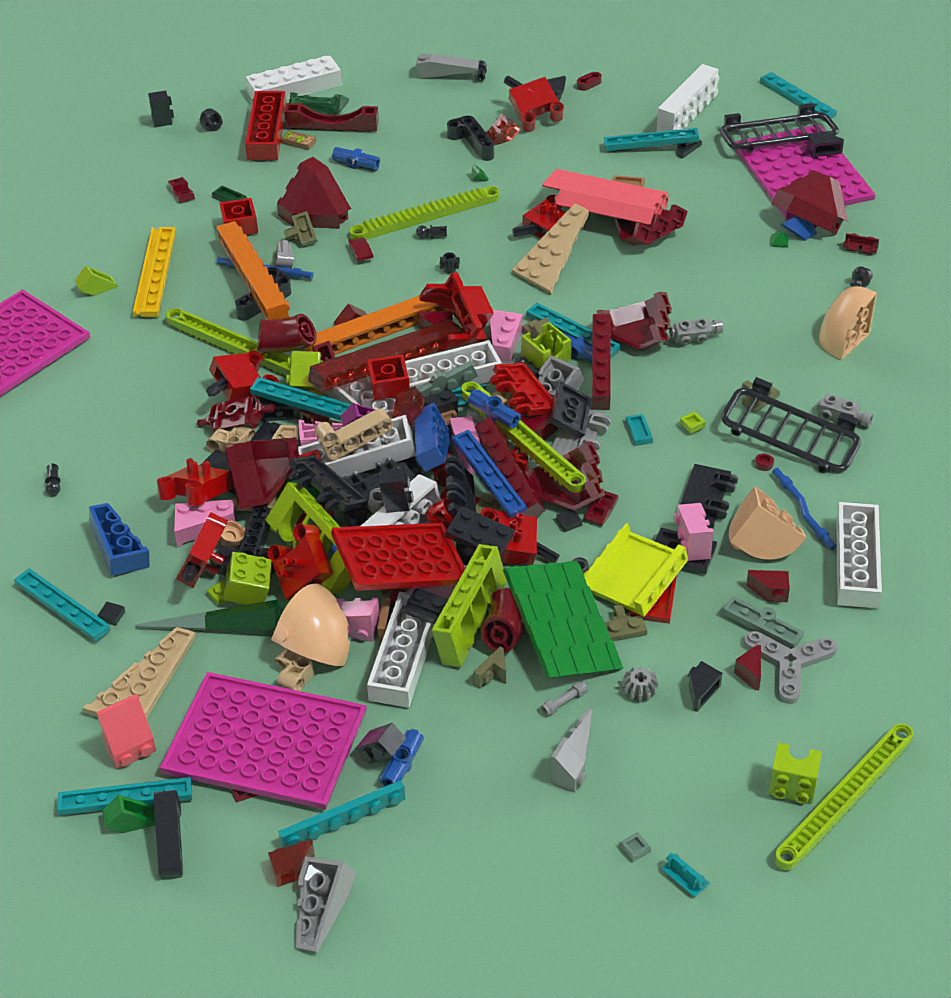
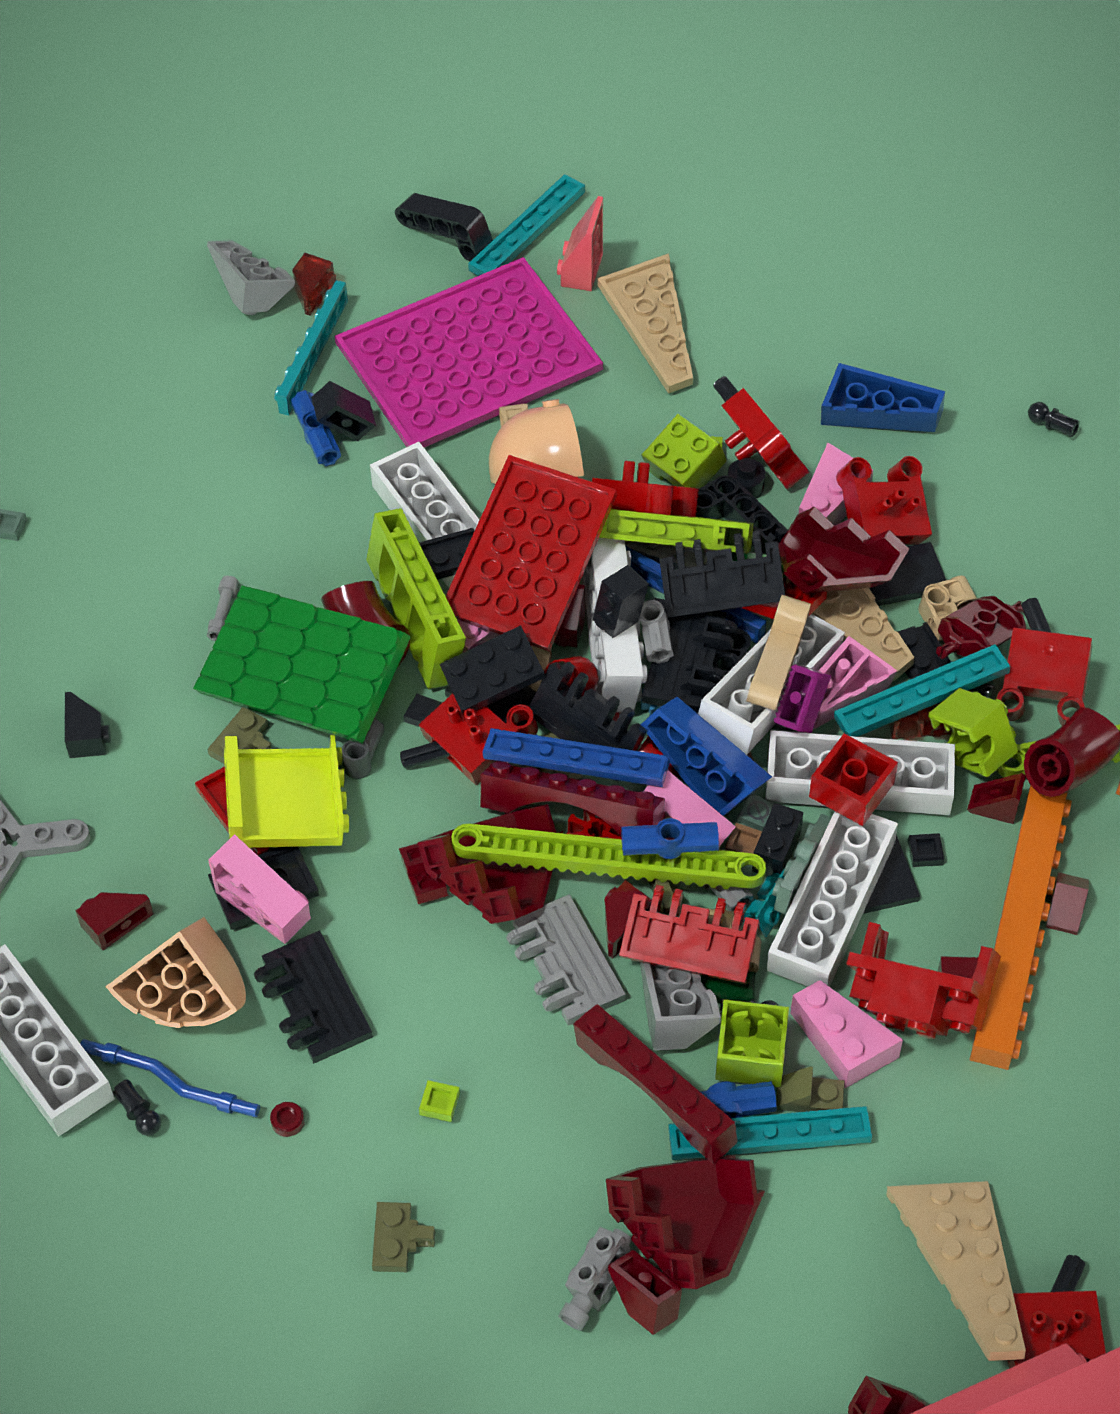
camera: 135 degrees right, 10 degrees up
(62, 605) = (836, 319): teal plate -> none
(111, 613) = (781, 352): black tile -> none
(128, 814) = (501, 209): green slope -> none
(232, 535) = (780, 499): light nougat hair -> none
(250, 619) = (629, 444): dark green plate -> none
(354, 364) = (919, 827): clear red brick -> none
(409, 403) = (778, 760): clear red slope -> none
(449, 262) = (1082, 1110): black gear -> none
(492, 667) = (327, 576): olive slope -> none
(569, 520) = (443, 820): black tile -> none
(570, 410) = (599, 956): black plate -> none
(571, 754) = (144, 549): light grey wedge -> none
(639, 429) = (502, 1036): teal tile -> none
(640, 683) = (153, 678): light grey gear -> none
(682, 308) = (645, 1292): none -> dark red slope
(749, 667) = (46, 787): dark red slope -> none
(761, 391) = (382, 1209): black bar -> none
(763, 622) = (81, 862): sand green hinge -> none
(829, 504) = (147, 1121): none -> black pin
(832, 406) = (256, 1302): light grey brick -> none

